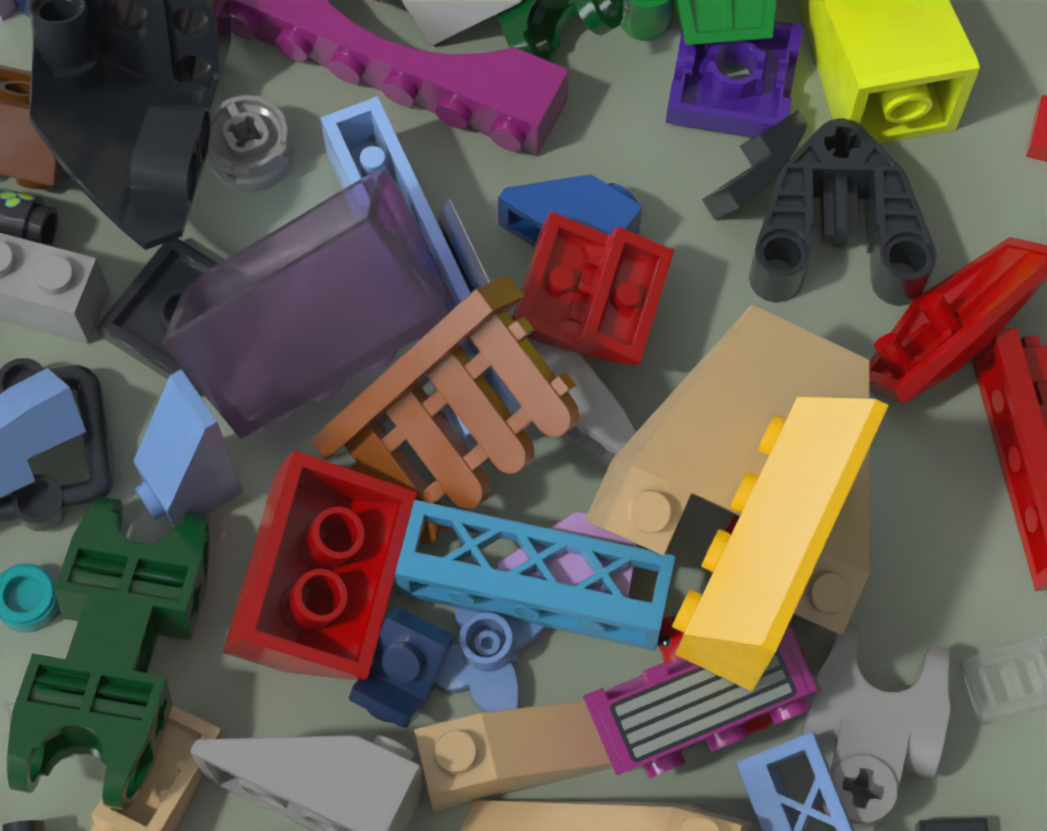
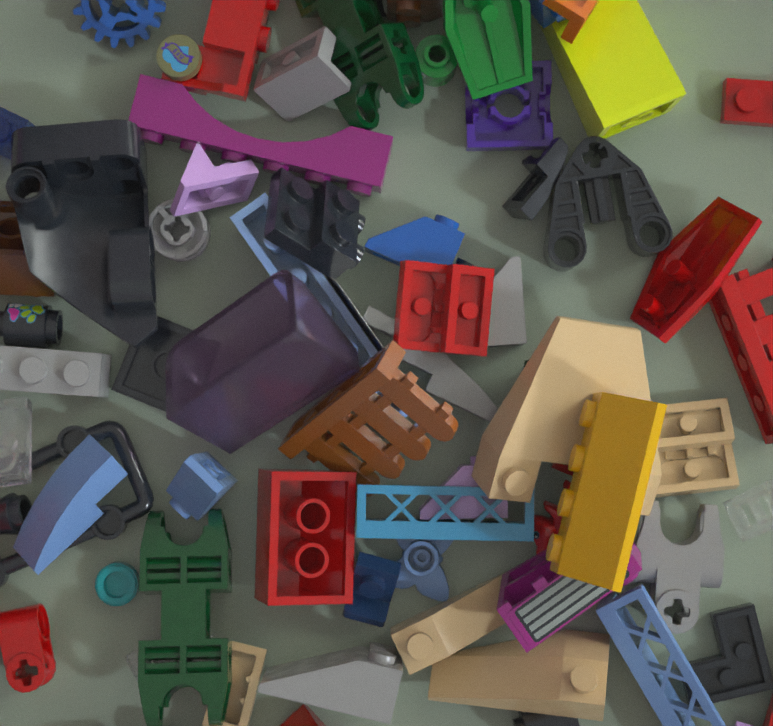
camera: 10 degrees left, 20 degrees up
(305, 85) = (211, 186): none -> lavender slope
(437, 154) = (314, 223): none -> black plate
(679, 323) = (507, 307): none -> light grey slope
(925, 573) = (697, 448): none -> tan slope

